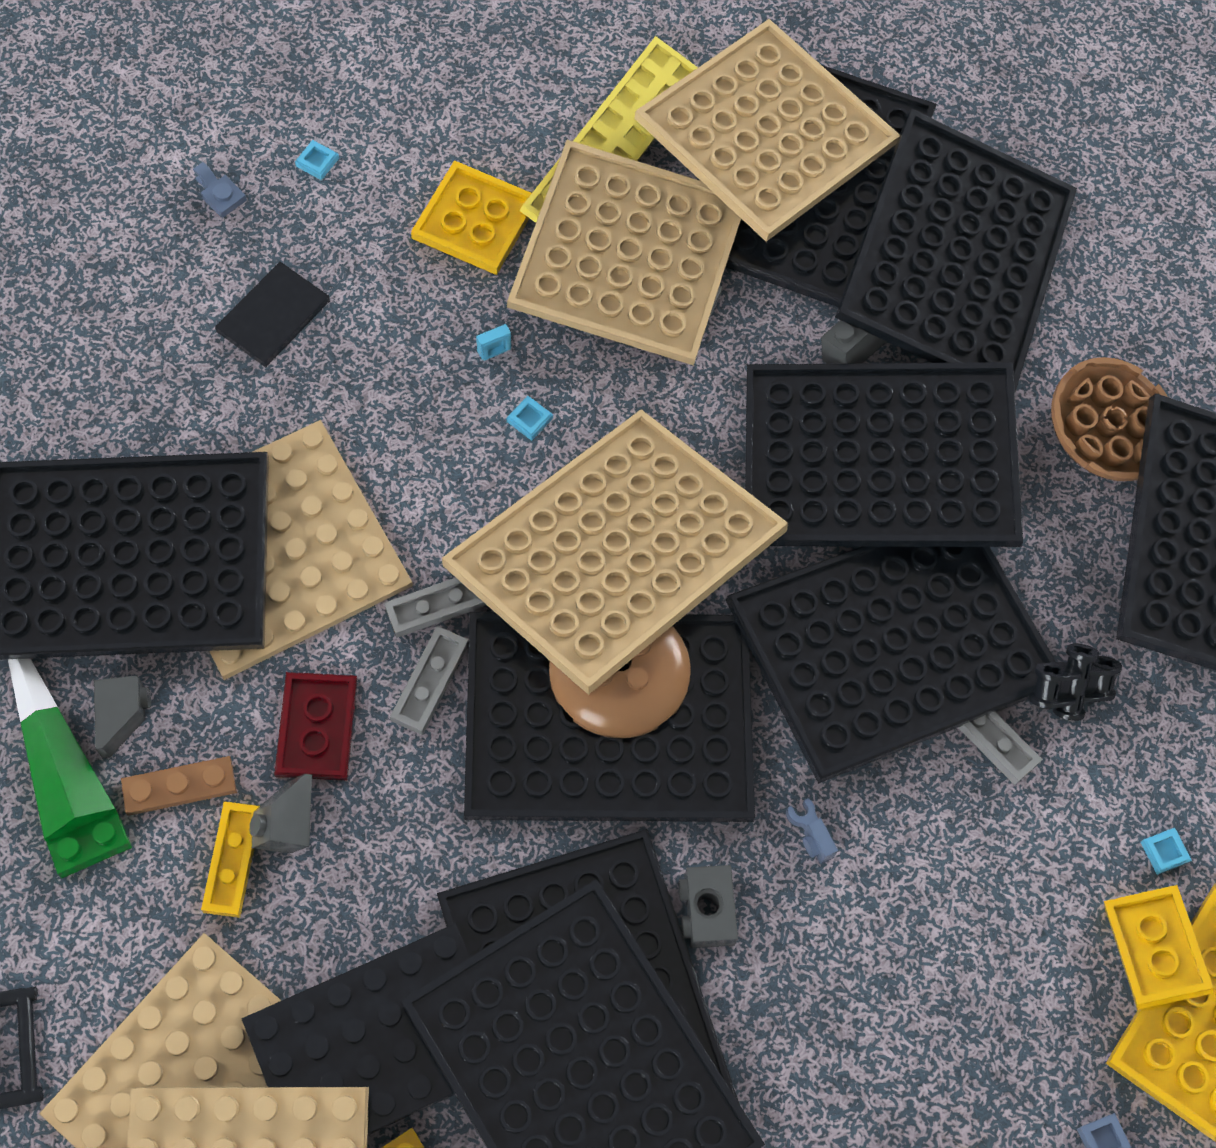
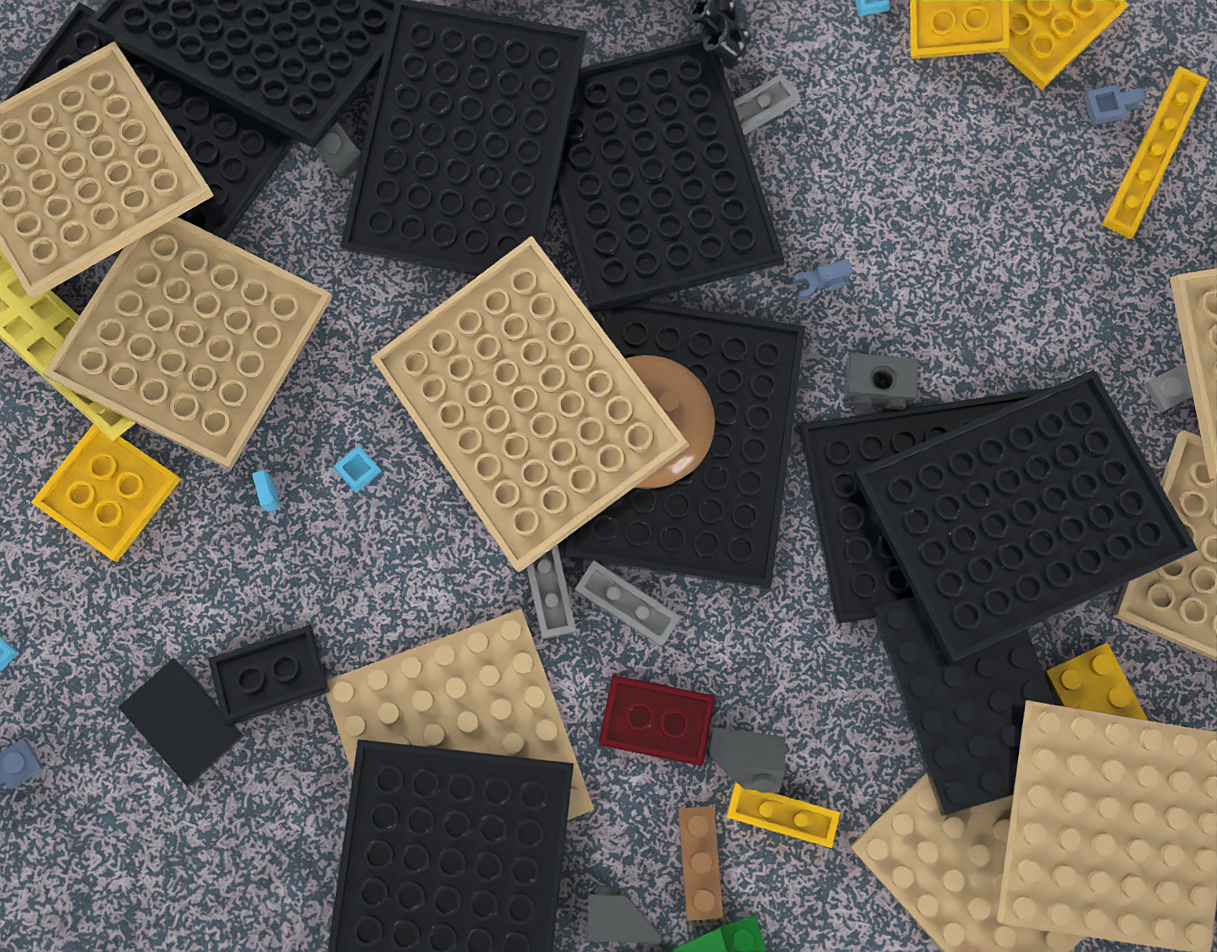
camera: 80 degrees left, 10 degrees up
(322, 375) = (268, 675): none -> black tile

